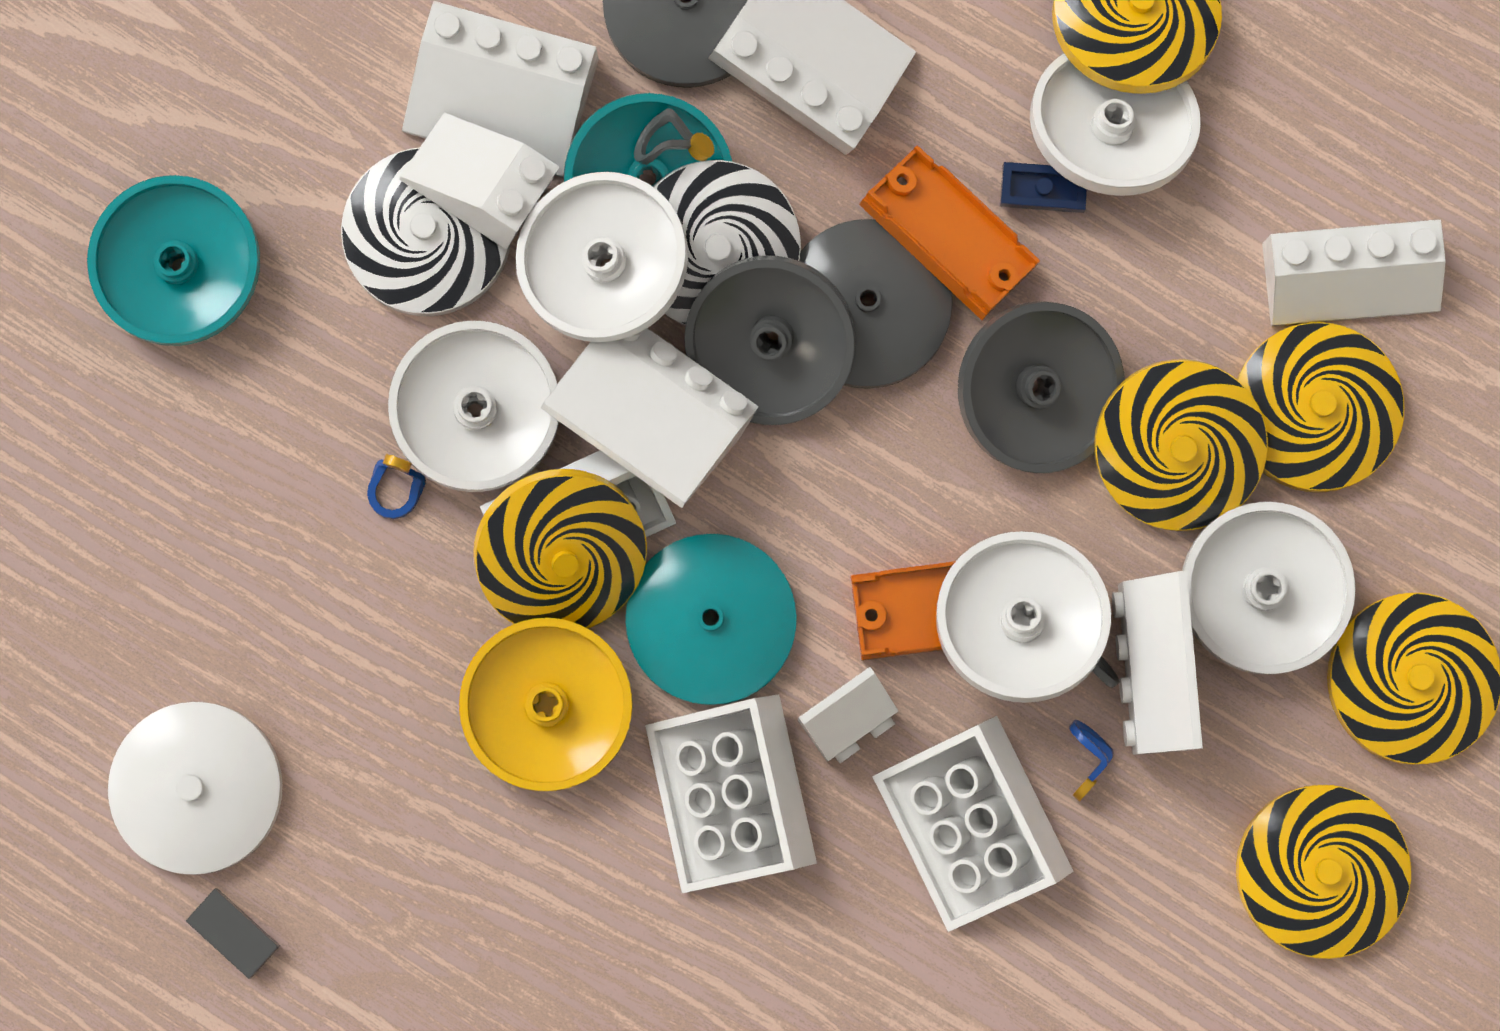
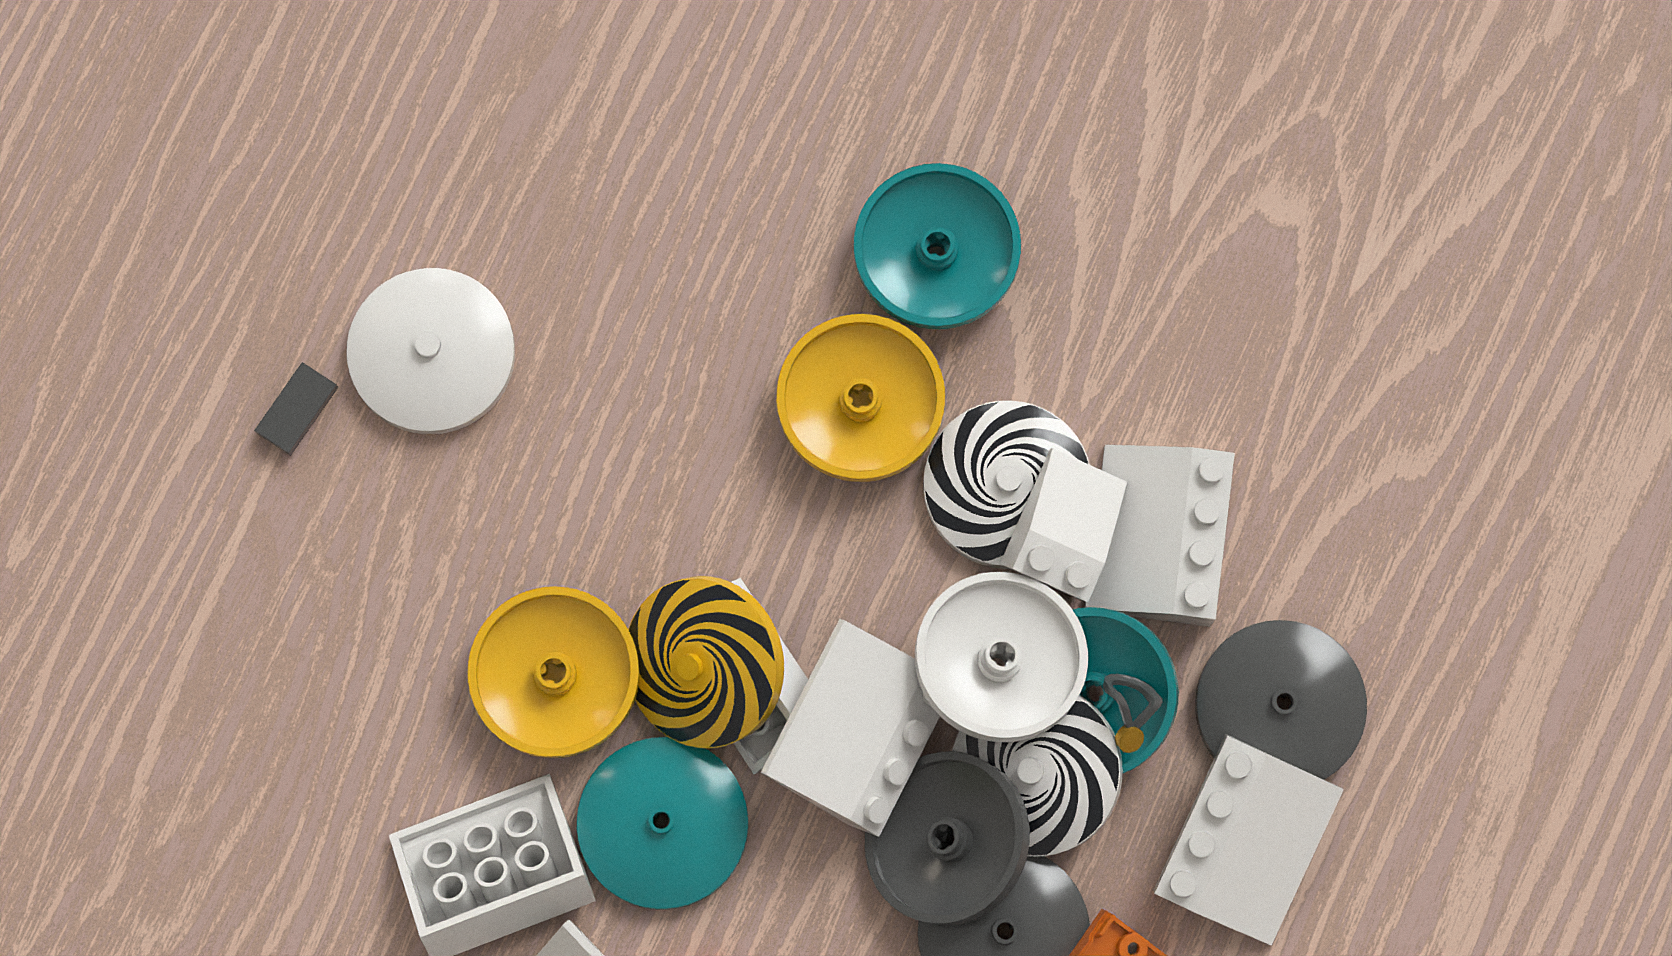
camera: 80 degrees right, 5 degrees down
(315, 359) = (860, 397): none -> yellow dish
(415, 492) = (751, 515): blue piece -> none
(466, 367) = (847, 517): white dish -> none

